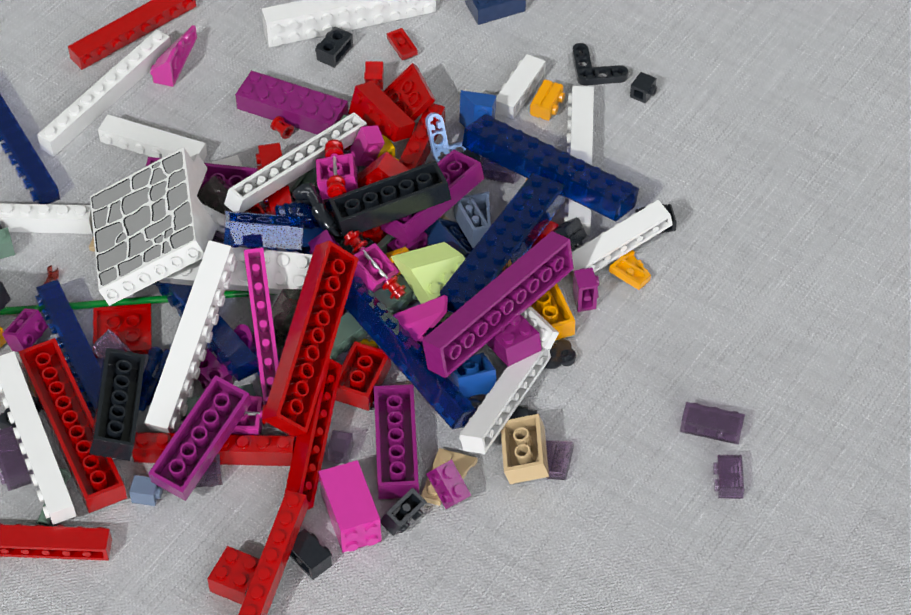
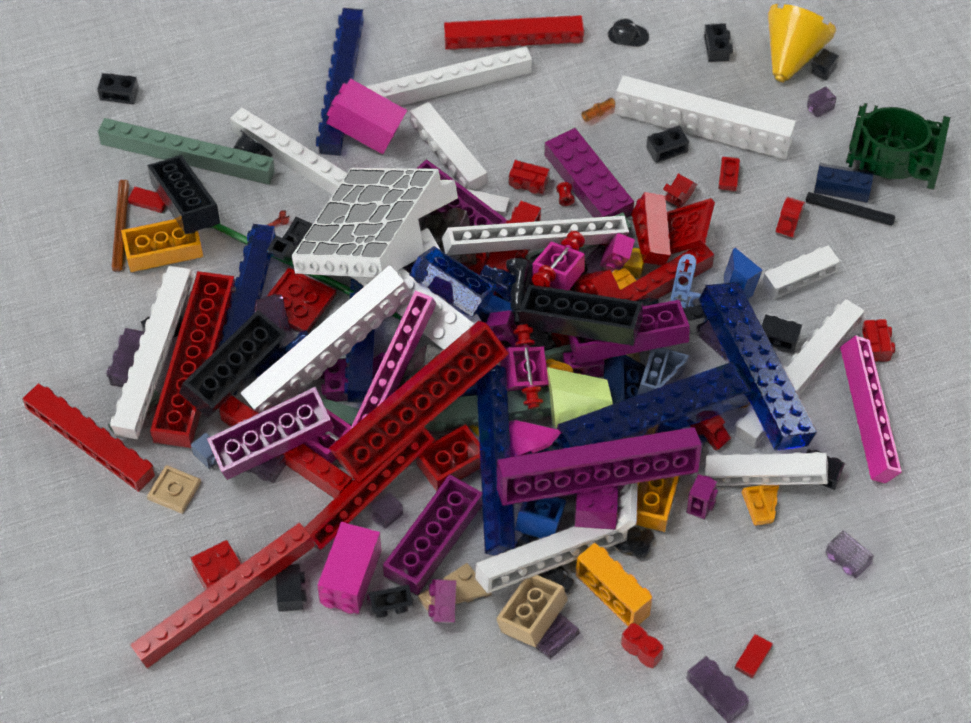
camera: 35 degrees right, 5 degrees up
(25, 330) = (220, 255): magenta brick -> none
(65, 150) = (365, 115): none -> dark pink brick
(78, 283) = (285, 246): none -> black arch
(139, 539) = (174, 489): none -> tan tile
(173, 59) = (520, 82): dark pink wedge -> none
(241, 130) = (529, 177): none -> red brick
(255, 49) = (598, 109): none -> clear orange pin
(478, 48) = (790, 215): none -> red brick
(517, 21) = (850, 208): none -> black axle
(547, 100) = (815, 299): light orange brick -> none
(547, 133) = (782, 333): none -> black brick
(572, 230) = (725, 438): black brick -> none
(573, 393) = (613, 585): none -> light orange brick
(589, 71) = (877, 292): black beam -> none
(619, 104) = (879, 335): none -> red brick
(629, 425) = (645, 647): none -> red brick
(643, 87) = (913, 336): black brick -> none
(657, 156) = (870, 410): none -> dark pink brick
(717, 384) = (753, 656): none -> red tile
(726, 268) = (849, 554): none -> clear purple brick

